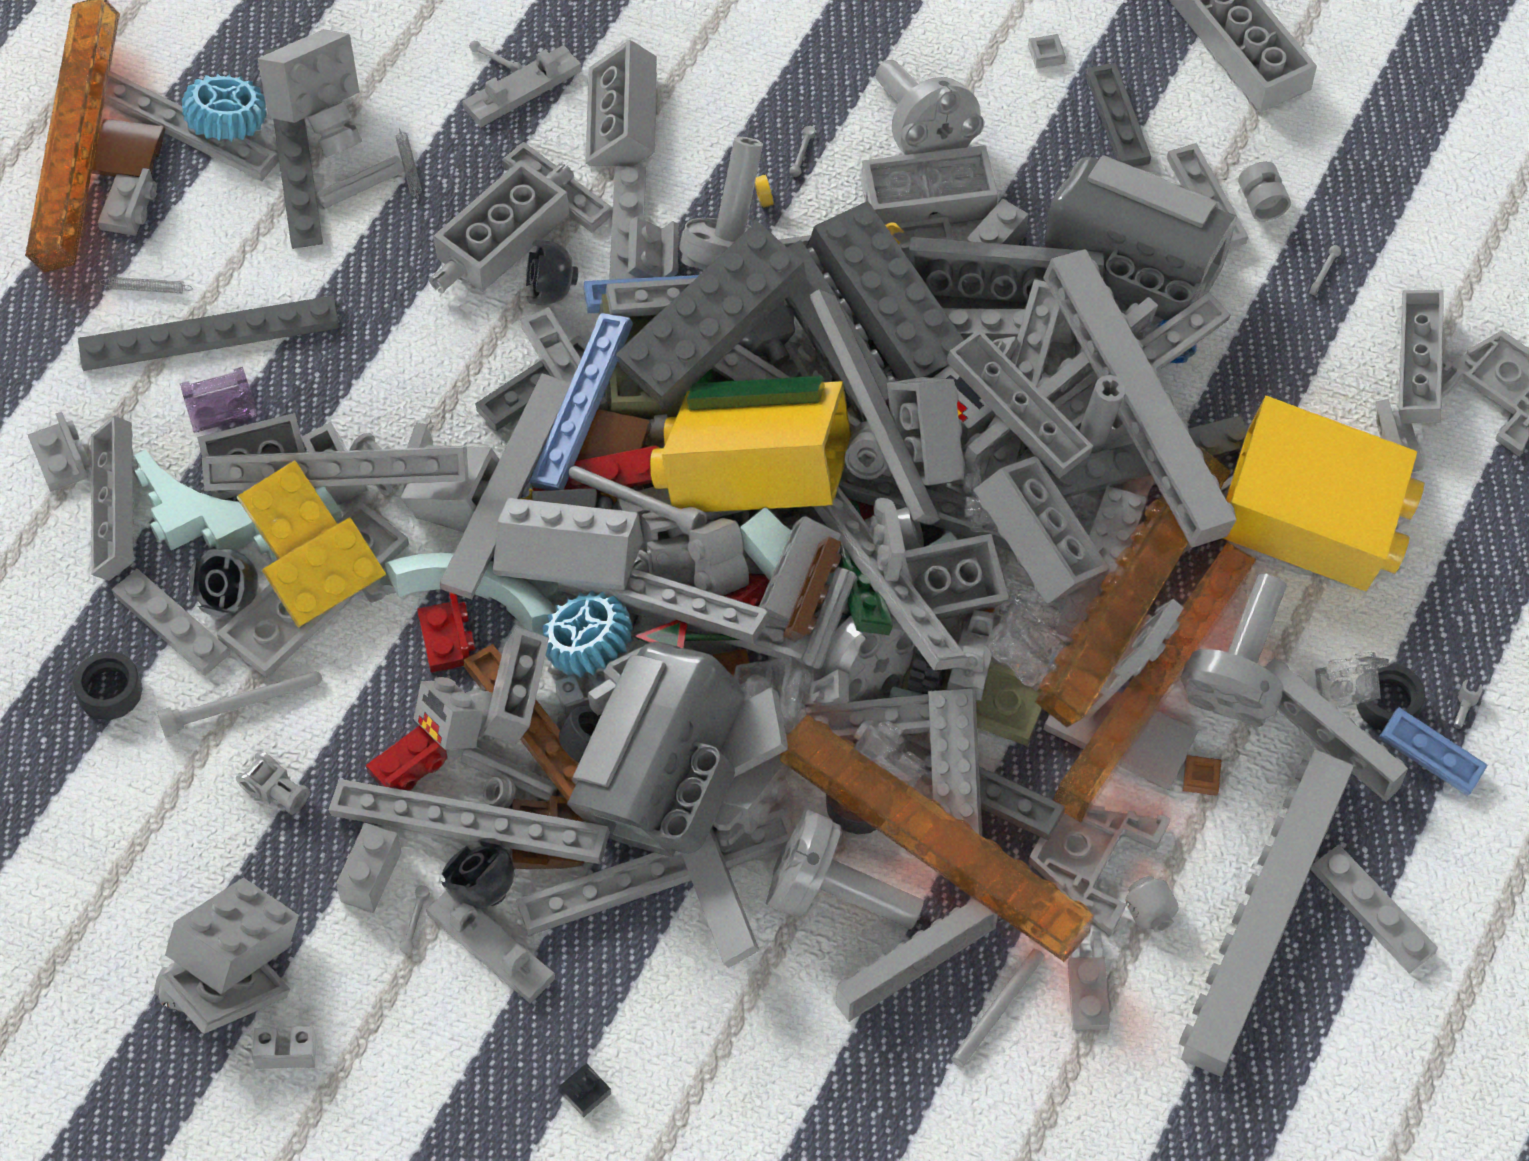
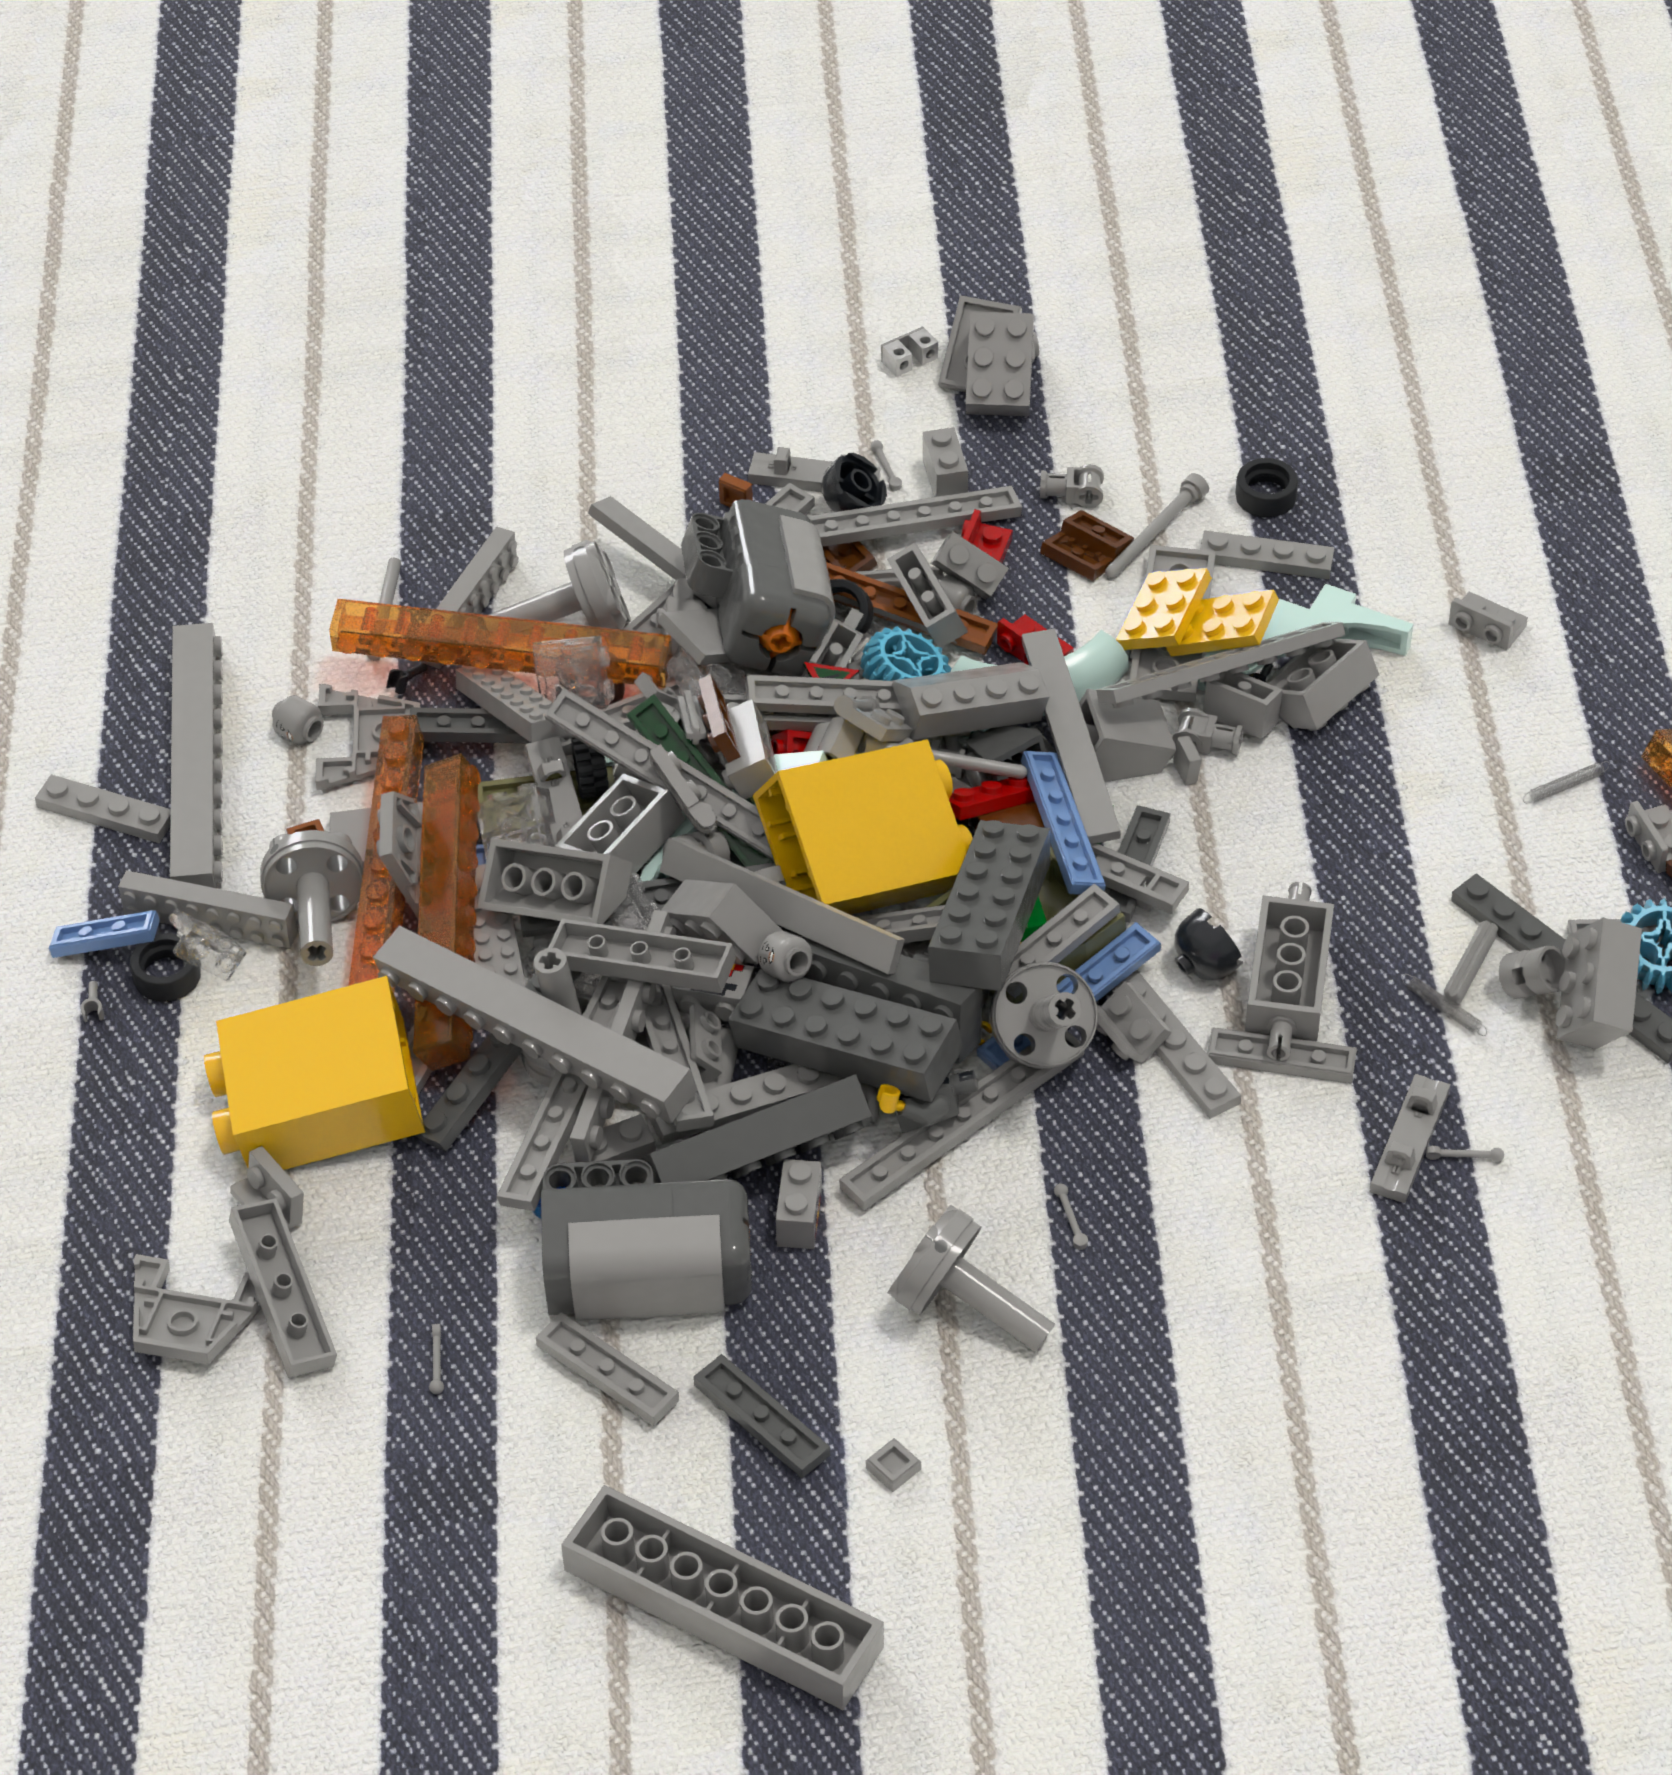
camera: 150 degrees right, 10 degrees down
(111, 498) = (1402, 599): light grey piece -> none
(207, 333) = (1466, 772): dark grey plate -> none
(220, 406) = (1394, 710): clear purple plate -> none
(223, 582) = (1240, 577): black cylinder -> none
(312, 717) = (1086, 545): none -> reddish brown slope
(499, 791) = (883, 554): light grey plate -> none
(584, 949) = (733, 489): none -> dark orange tile
(585, 1090) = (669, 425): black tile -> none
(621, 107) = (1283, 1153): light grey slope -> none
(676, 533) = (868, 716): none -> light grey plate
(755, 392) = (894, 856): dark green tile -> none
(763, 191) = (1071, 1141): yellow tile -> none
(902, 355) = (785, 956): none -> light grey head
(931, 185) = (890, 1214): brick -> none
(1089, 988) = (315, 649): light grey hinge -> none
(1264, 191) = (545, 1395): light grey wheel -> none

